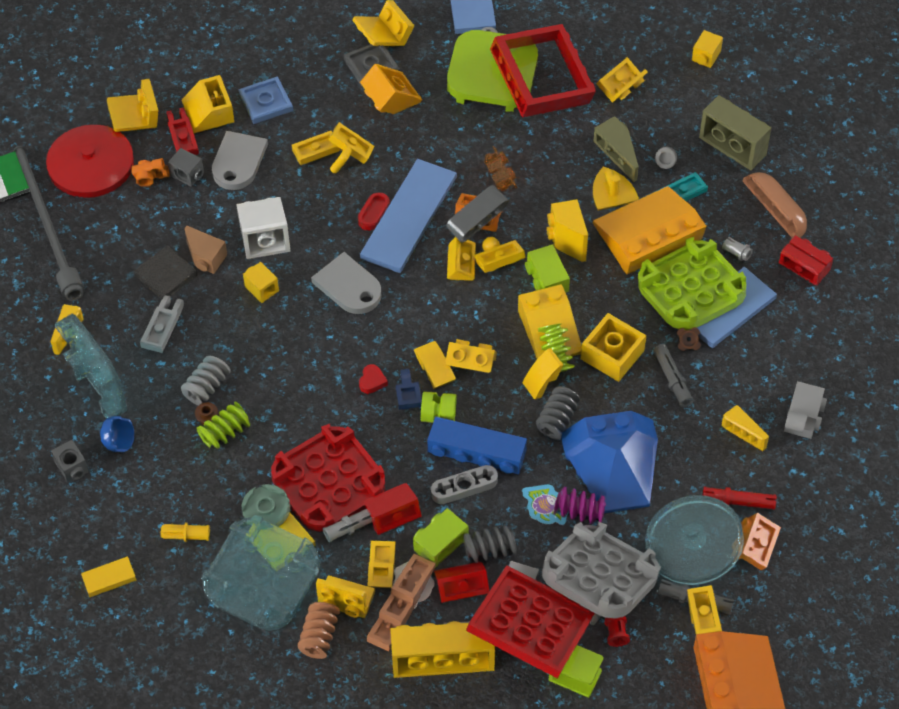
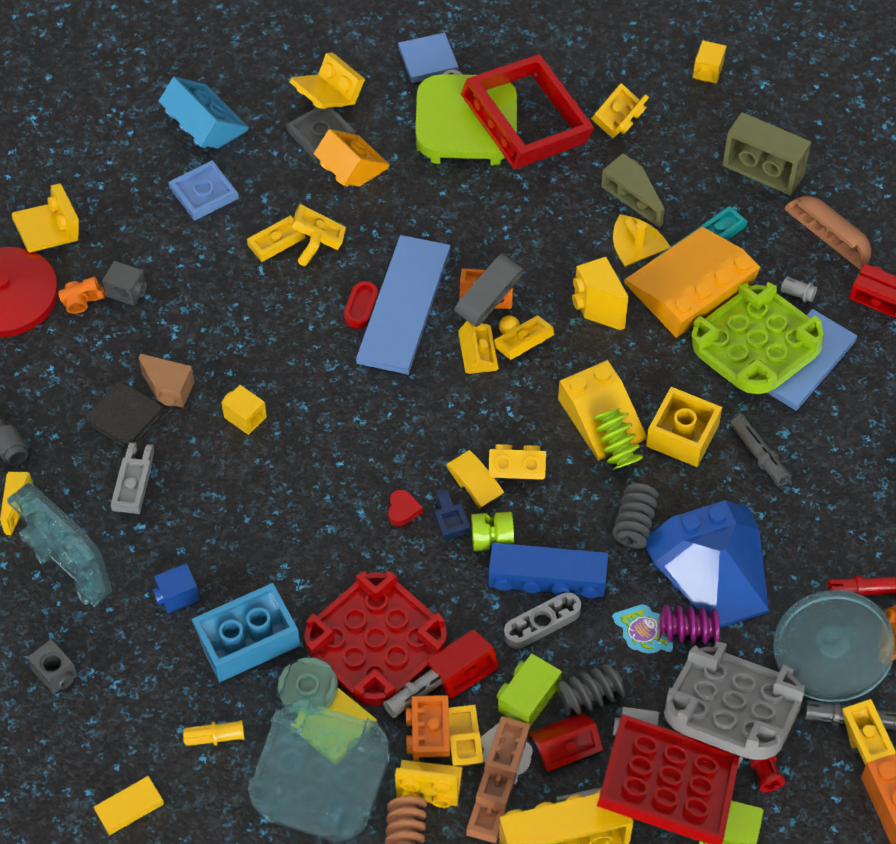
camera: 10 degrees left, 0 degrees up
(117, 434) = (105, 623): blue hair -> none
(178, 415) = (175, 588): none -> blue brick
(182, 132) = (111, 242): red hinge -> none
(199, 412) = (211, 587): reddish brown plate -> none
(205, 379) = (200, 539): light grey piece -> none
(208, 105) = (136, 205): yellow slope -> none
(223, 425) = (239, 584): lime piece -> none
(225, 457) = (246, 632): none -> dark azure slope
(238, 157) = (185, 262): light grey tile -> none
(263, 227) = (234, 342): white slope -> none
(276, 36) = (201, 113): none -> dark azure slope
(347, 284) = (349, 396): light grey tile -> none
(354, 552) = (429, 727): none -> orange bracket
(505, 175) = (495, 226): clear orange hinge -> none
(542, 372) = (607, 470): yellow slope -> none
(546, 268) = (583, 344): lime brick -> none
(666, 157) = (691, 193): light grey tile -> none
(693, 343) = (775, 407): reddish brown plate -> none
(744, 427) = (859, 500): yellow slope -> none

